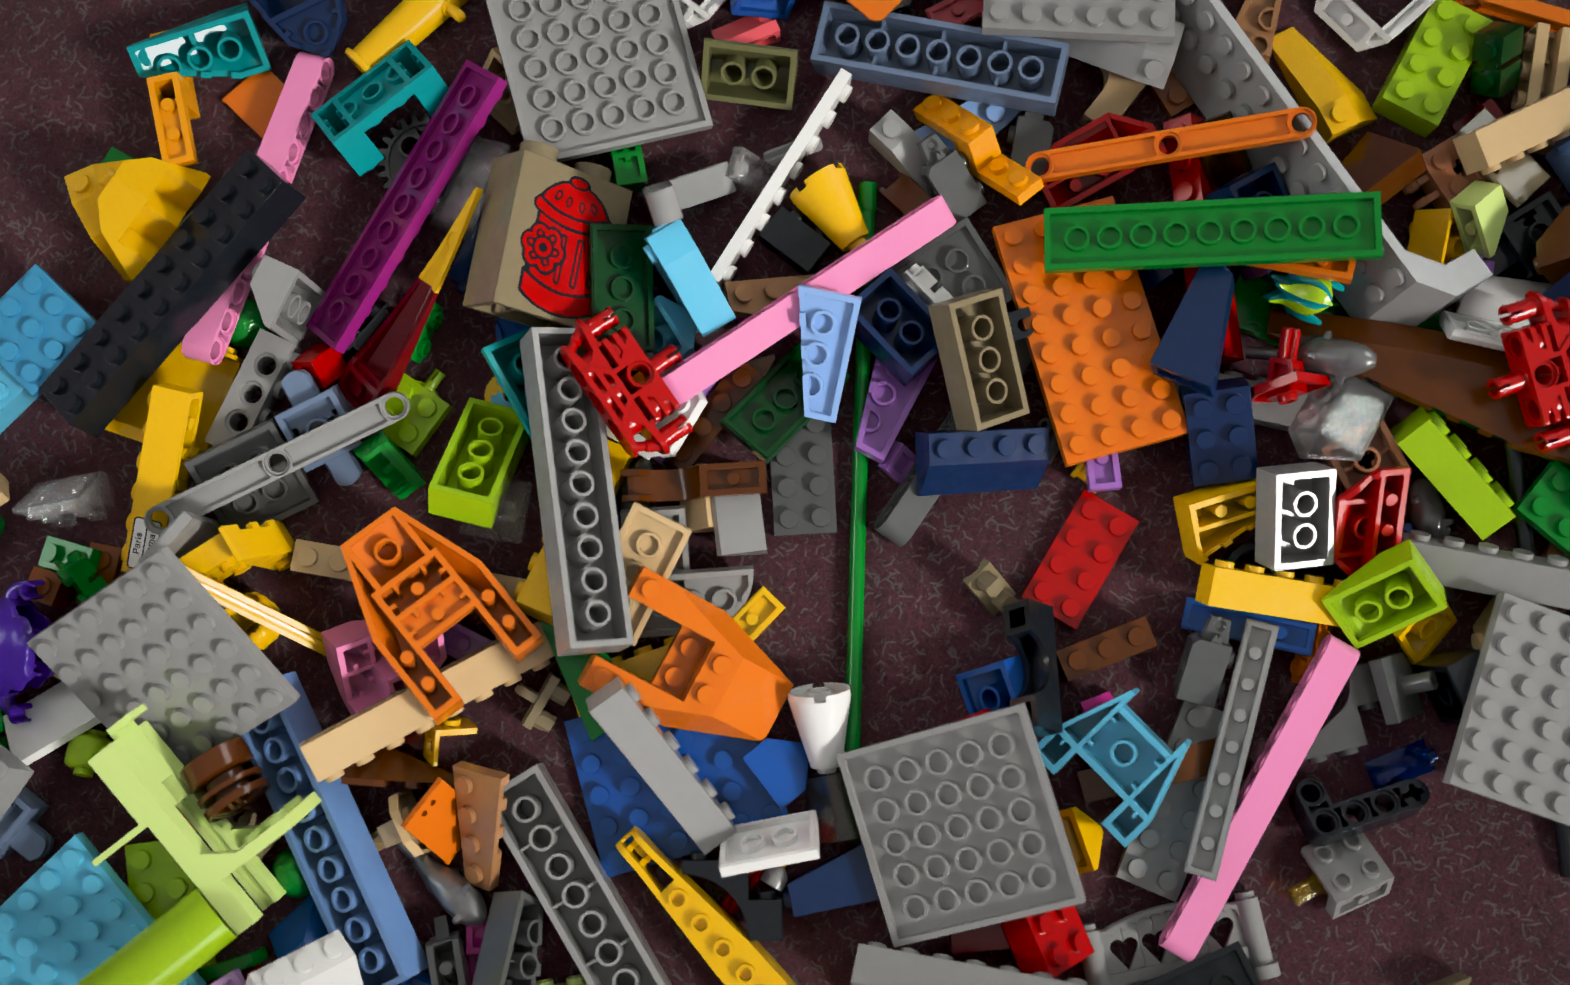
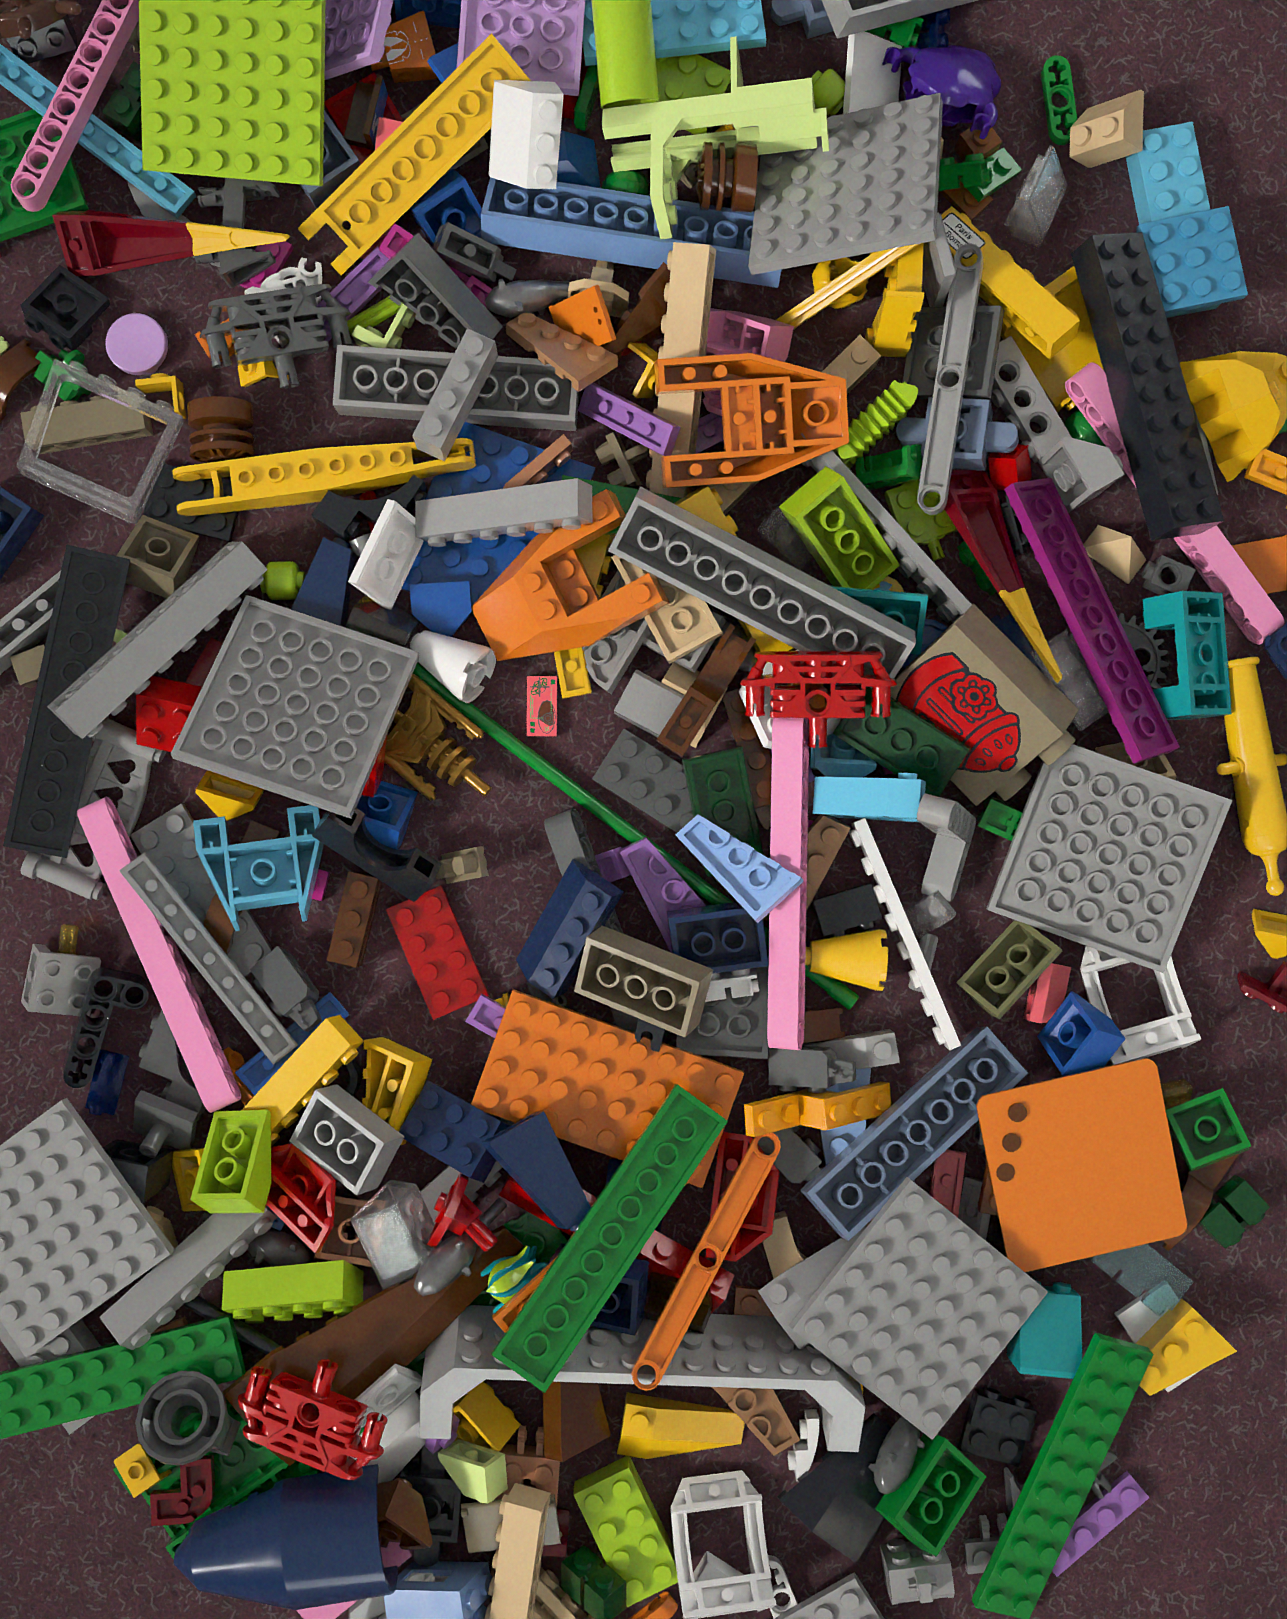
camera: 120 degrees right, 5 degrees up
(321, 160) = (1179, 574): none -> dark grey brick
(334, 230) = (1115, 552): none -> tan slope
(355, 503) = (876, 421): none -> lime piece
(456, 392) = (909, 555): none -> light grey hinge
(501, 715) = (629, 419): none -> medium lavender plate
(586, 884) = (455, 395): none -> light grey brick
(604, 767) = (536, 471): none -> nougat plate
(805, 620) = (541, 706): none -> coral tile
(856, 926) = (282, 580): none -> lime head
(905, 706) = (421, 735): none -> pearl gold bar

